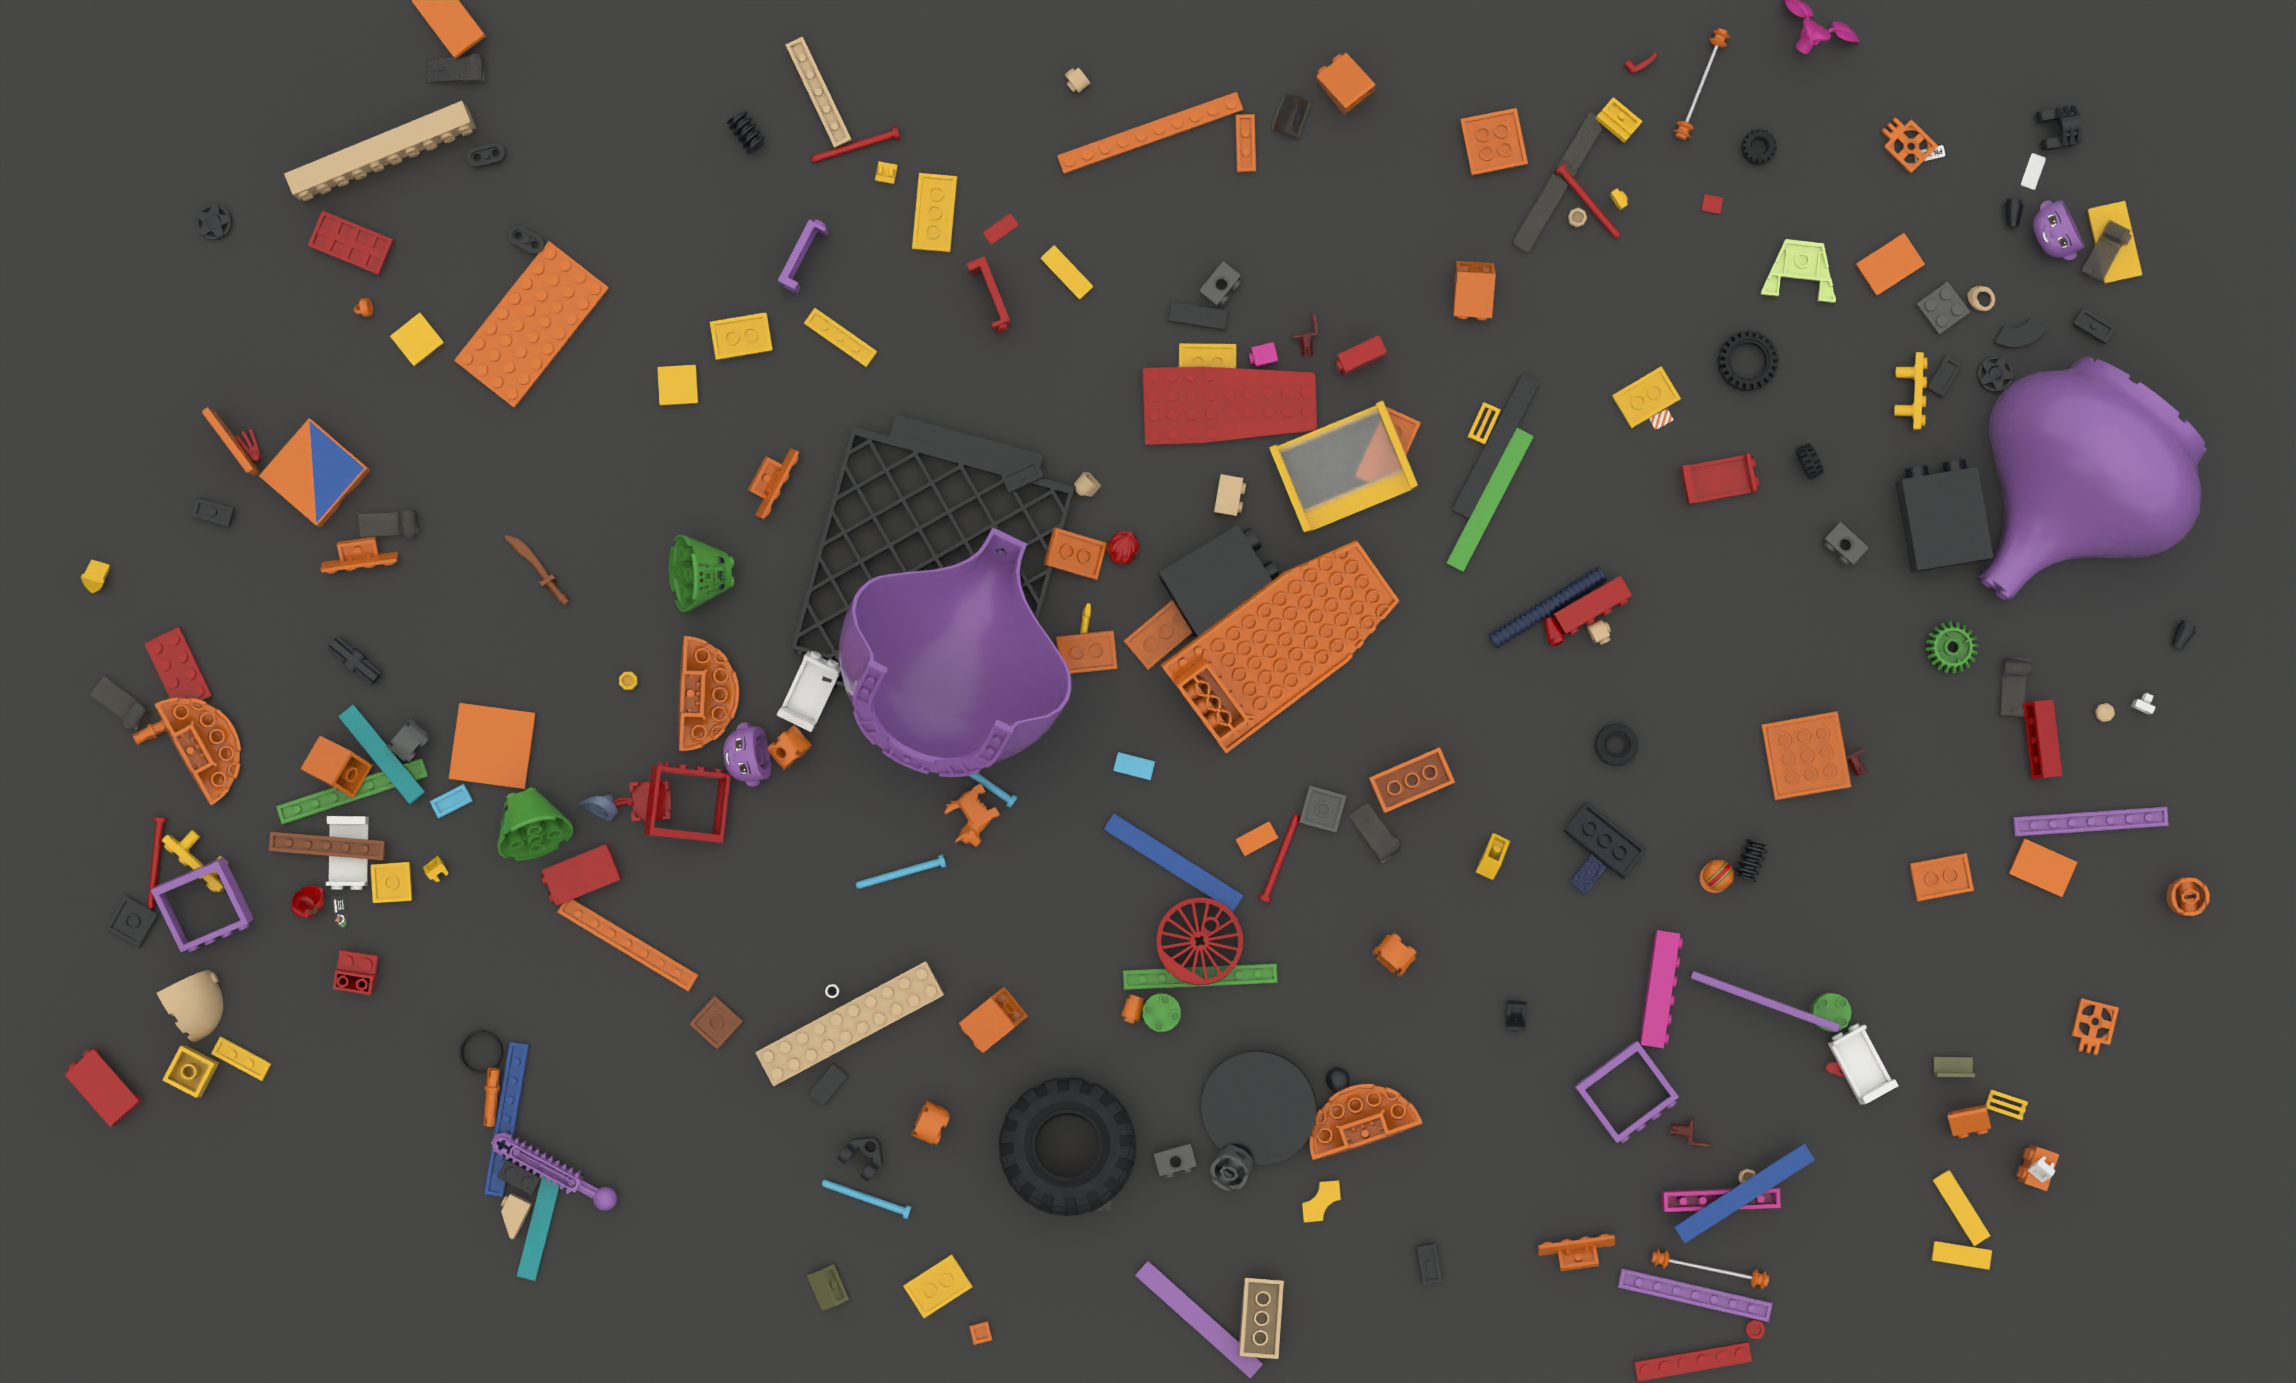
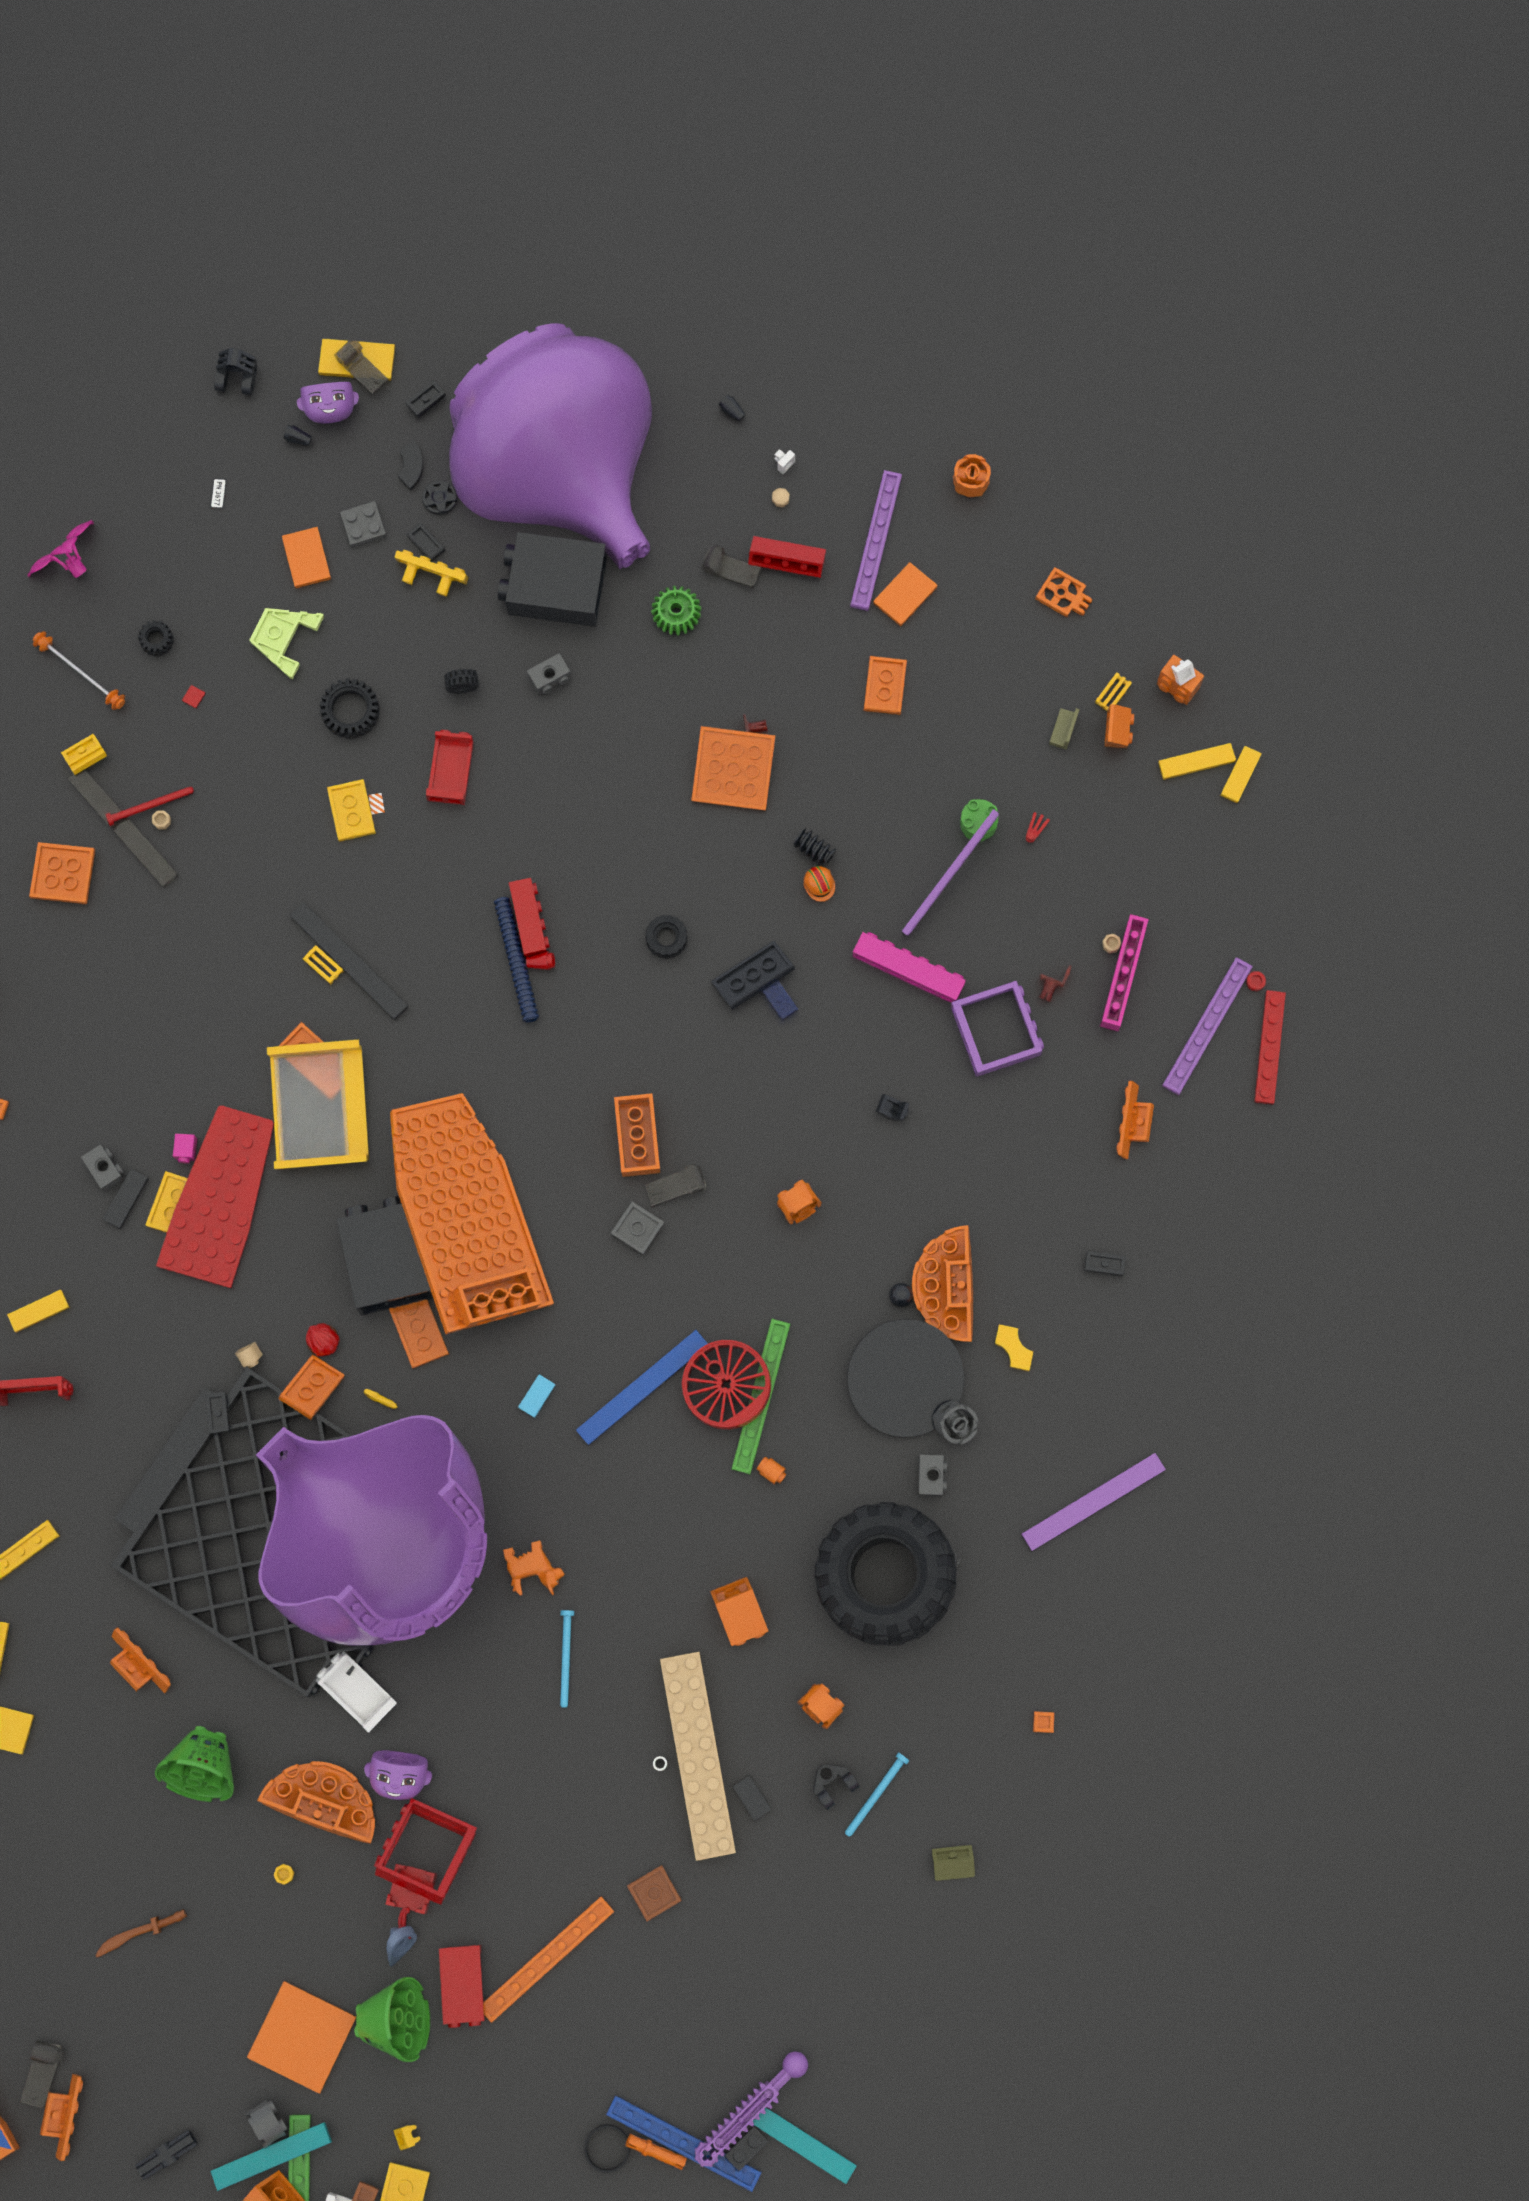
camera: 75 degrees left, 10 degrees down
(451, 801) = (343, 2098): medium azure tile -> none
(514, 1213) = (781, 2164): tan slope -> none
(789, 747) = (404, 1729): orange brick -> none
(937, 1286) = (985, 1750): yellow tile -> none
(993, 788) = (510, 1542): medium azure bar -> none
(1088, 651) = (411, 1397): orange tile -> none
(1161, 1012) = (783, 1443): bright green brick -> none
(1229, 495) = (307, 1222): tan brick -> none
(1256, 838) = (645, 1300): orange tile -> none
(1261, 1318) = (1110, 1439): tan brick -> none
(1279, 860) = (672, 1284): red bar -> none
(1306, 338) = (183, 1104): clear red bracket -> none
(1360, 356) = (217, 1056): red brick -> none
(1474, 290) = (194, 933): orange slope -> none
(1489, 499) = (397, 982): bright green tile -> none
(1493, 856) = (735, 1082): yellow slope -> none
(1599, 632) = (555, 919): tan plate -> none
(1619, 199) = (157, 776): yellow plate -> none
(1632, 68) = (39, 728): red piece -> none
(1664, 1259) = (1208, 965): orange axle -> none
(1744, 1193) = (1125, 947): blue tile -> none
(1861, 1064) = (1036, 808): white panel -> none
(1898, 133) = (187, 517): orange piece -> none
(1972, 298) = (364, 495): tan piece -> none
(2033, 171) = (267, 409): white sticker -> none

